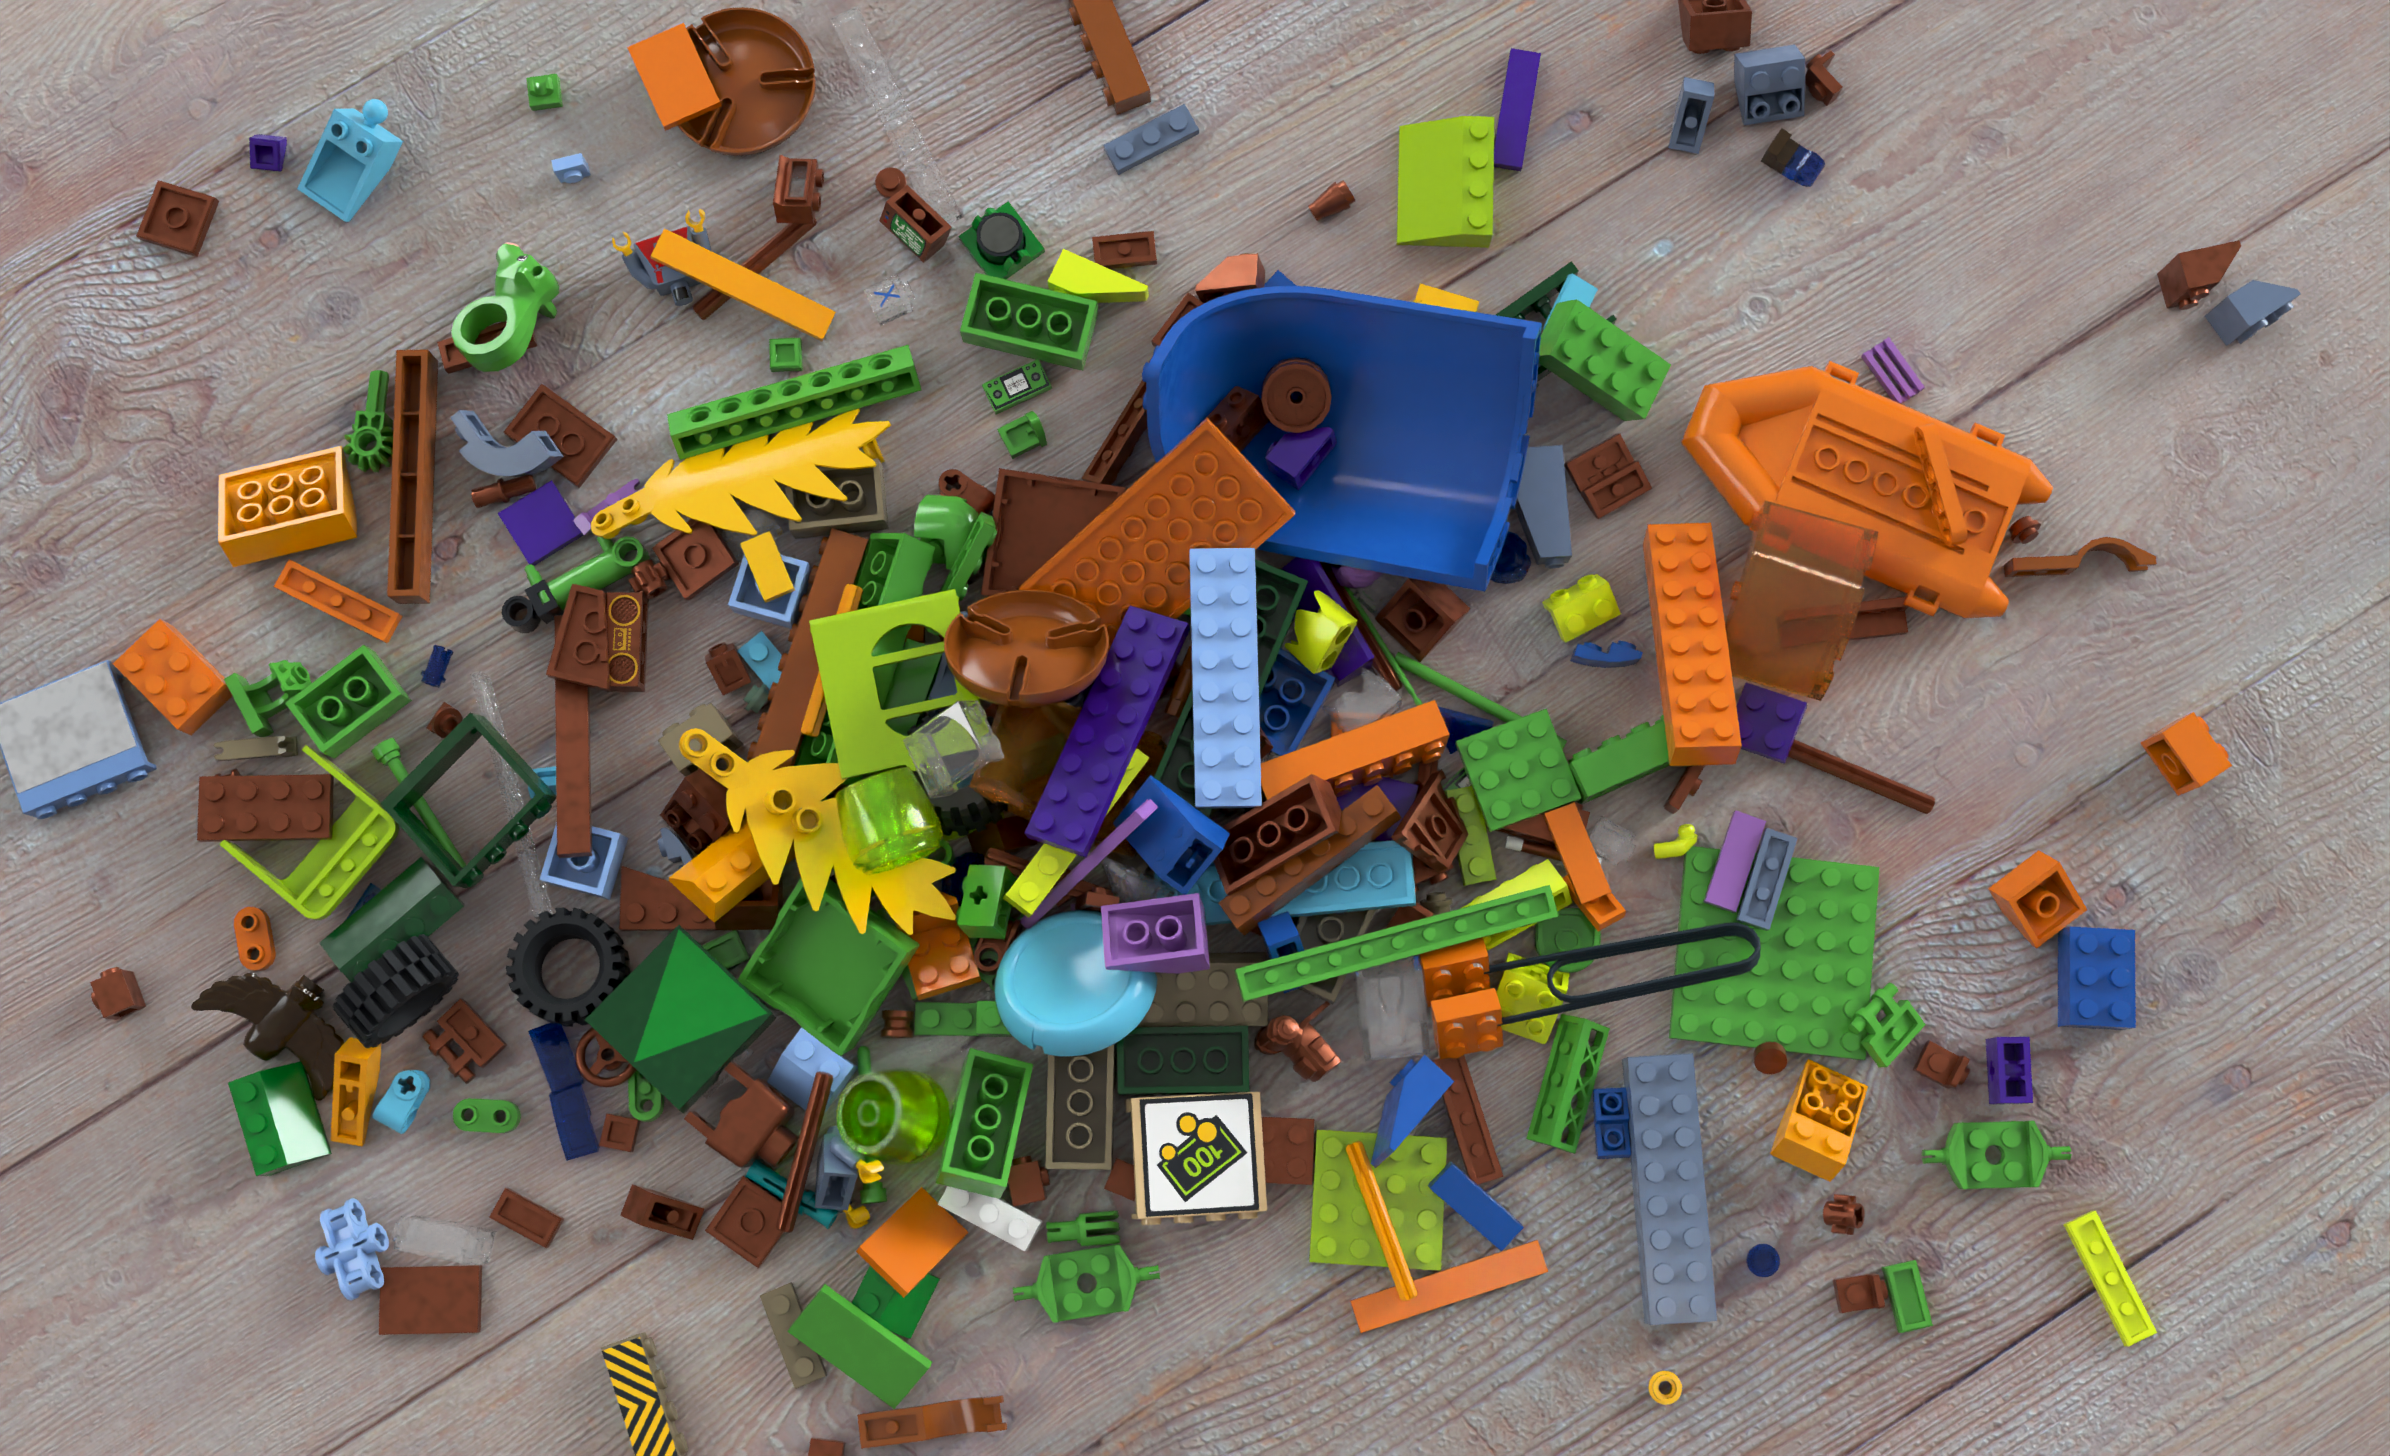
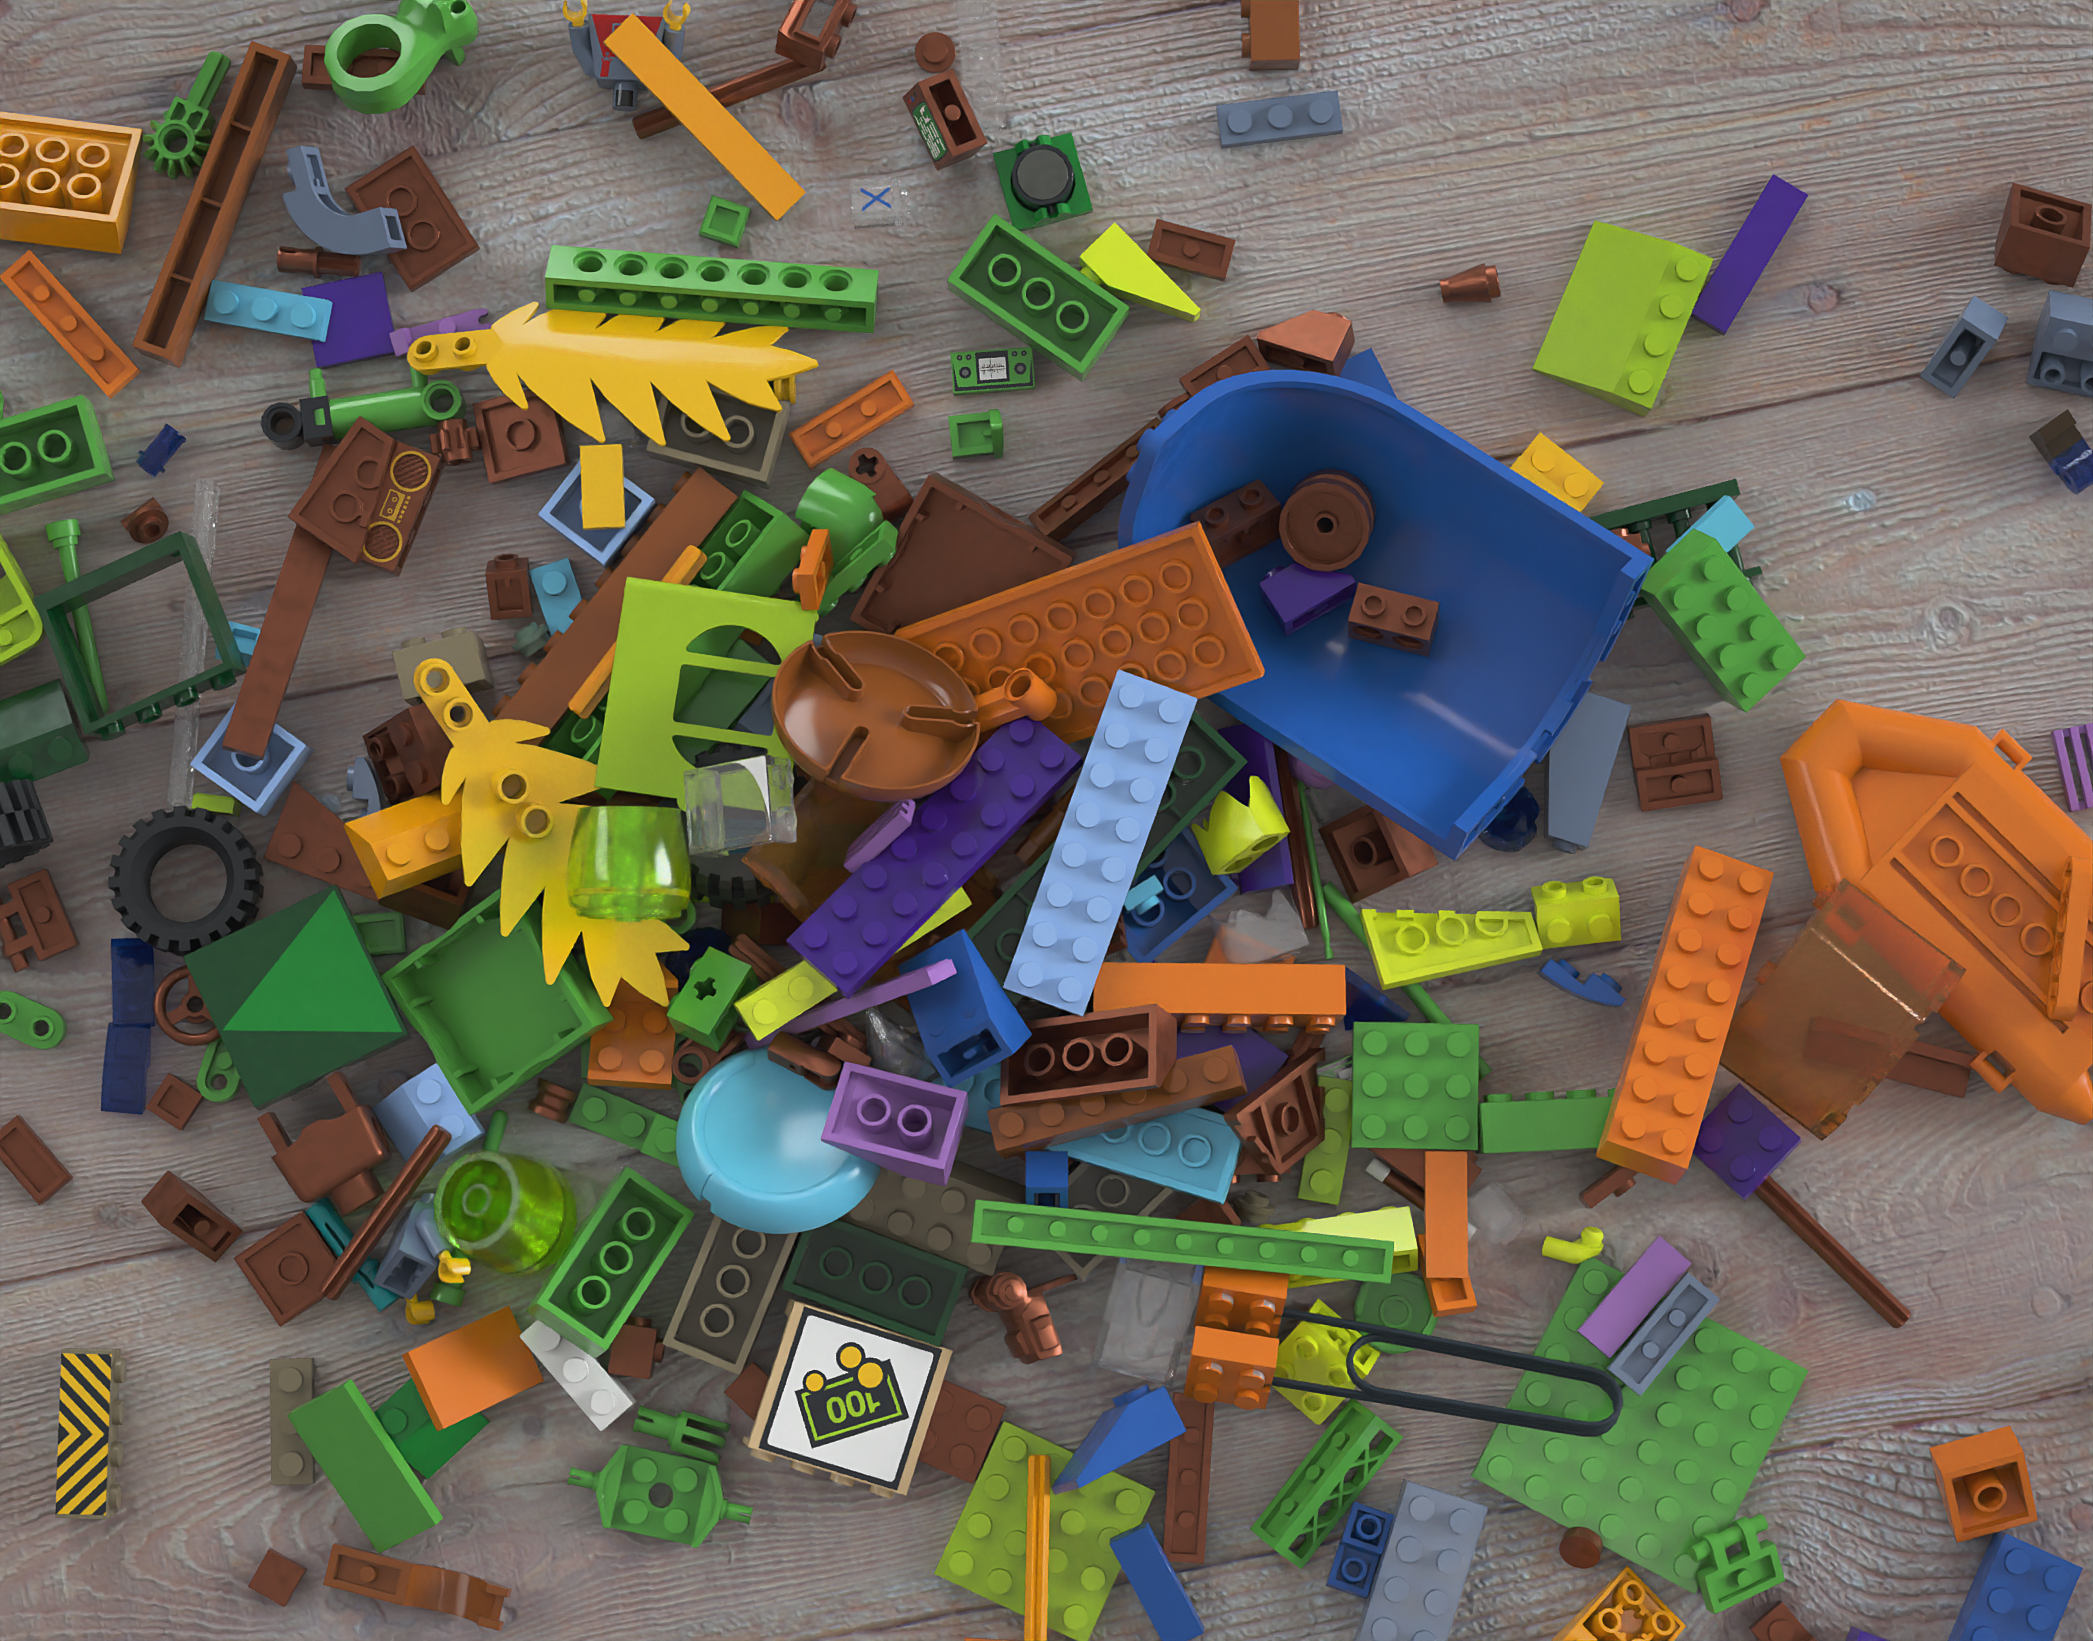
camera: 20 degrees right, 5 degrees up
(479, 537) = (268, 310): none -> medium azure plate
(577, 901) = (217, 804): none -> lime tile
(929, 458) = (851, 420): none -> orange tile
(942, 565) = (814, 570): none -> orange plate
(1063, 732) = (879, 834): none -> medium lavender tile
(1069, 918) = (805, 1061): none -> copper bar
(1126, 596) = (1018, 697): none -> orange piece
(1270, 707) = (1143, 896): none -> medium azure plate
(1370, 446) = (1393, 619): none -> copper brick
(1487, 669) = (1436, 945): none -> neon yellow wing

